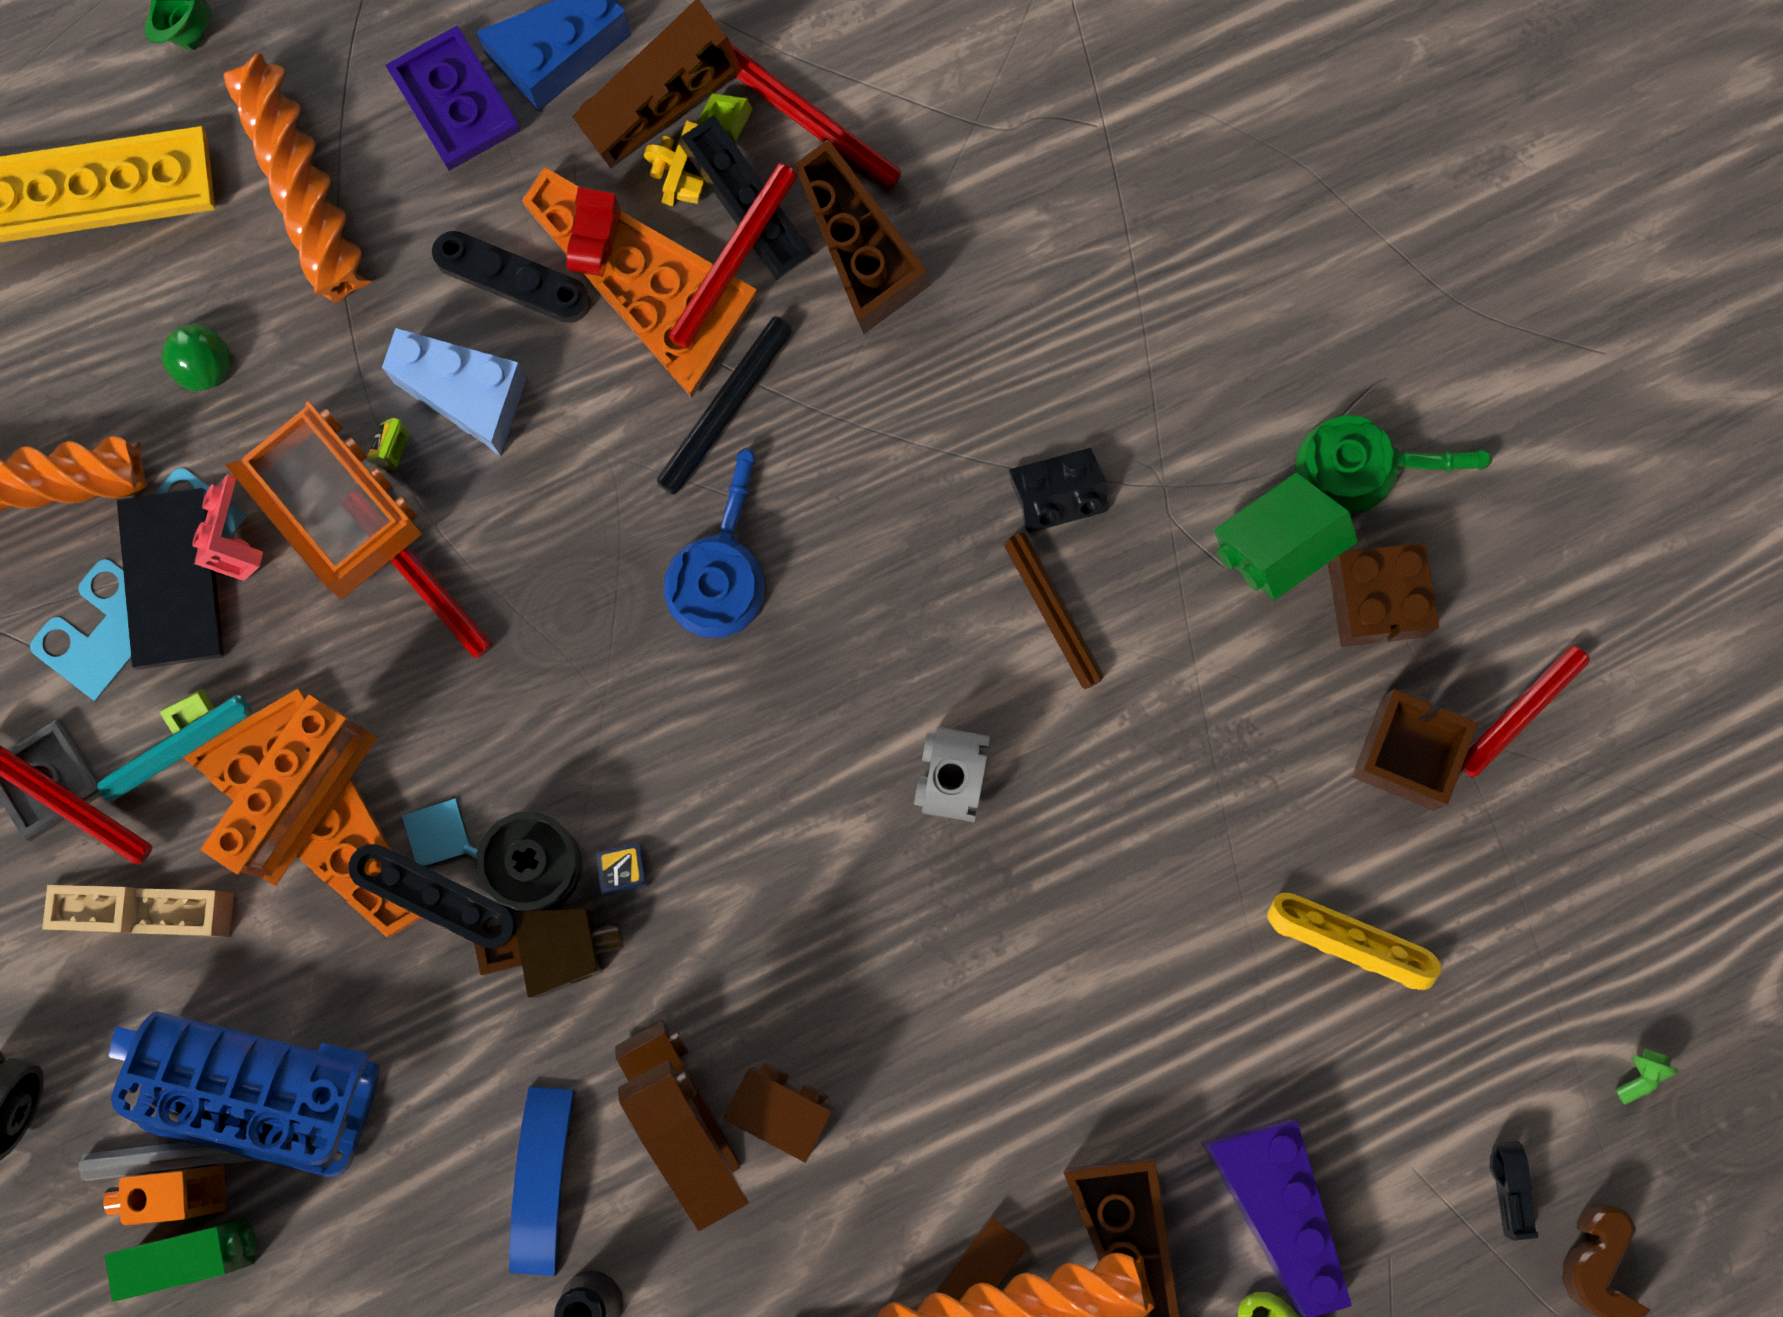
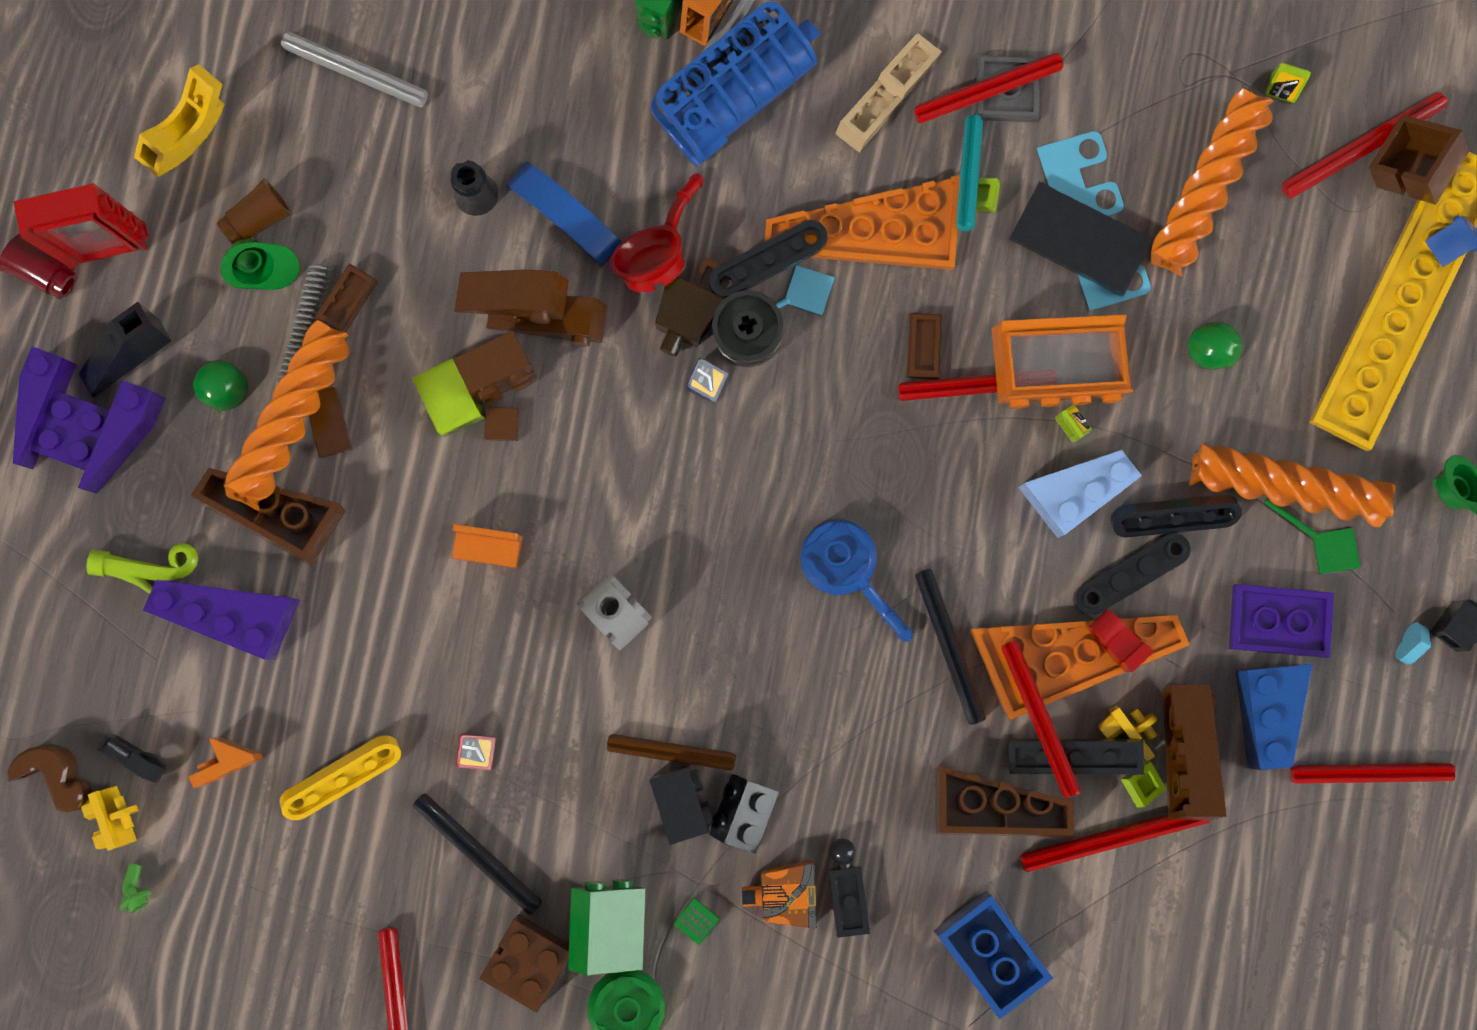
camera: 125 degrees right, 5 degrees up
(221, 554) = (1068, 280): coral bracket -> none
(289, 792) = (887, 218): orange window -> none
(337, 99) = (1333, 549): none -> green piece
(412, 662) = (924, 346): none -> reddish brown tile
(415, 272) = (1175, 516): none -> black plate
(514, 1032) = (655, 252): none -> red piece
(837, 1064) = (501, 424): none -> reddish brown tile
(852, 1146) = (447, 398): none -> lime piece
(986, 974) = (486, 546): none -> orange panel
(1007, 142) = (993, 954): none -> blue brick
(1056, 328) = (847, 891): none -> black plate
(1104, 548) = (680, 803): none -> black brick
(1107, 386) = (785, 895): none -> torso
(1204, 458) = (696, 921): none -> green tile
(1212, 816) = (475, 751): none -> slope
(1315, 735) = (477, 854): none -> black axle
(1413, 755) = (418, 903): reddish brown piece -> none
(1426, 1077) = (230, 757): none -> orange slope
(1592, 1161) = (112, 818): none -> yellow hips

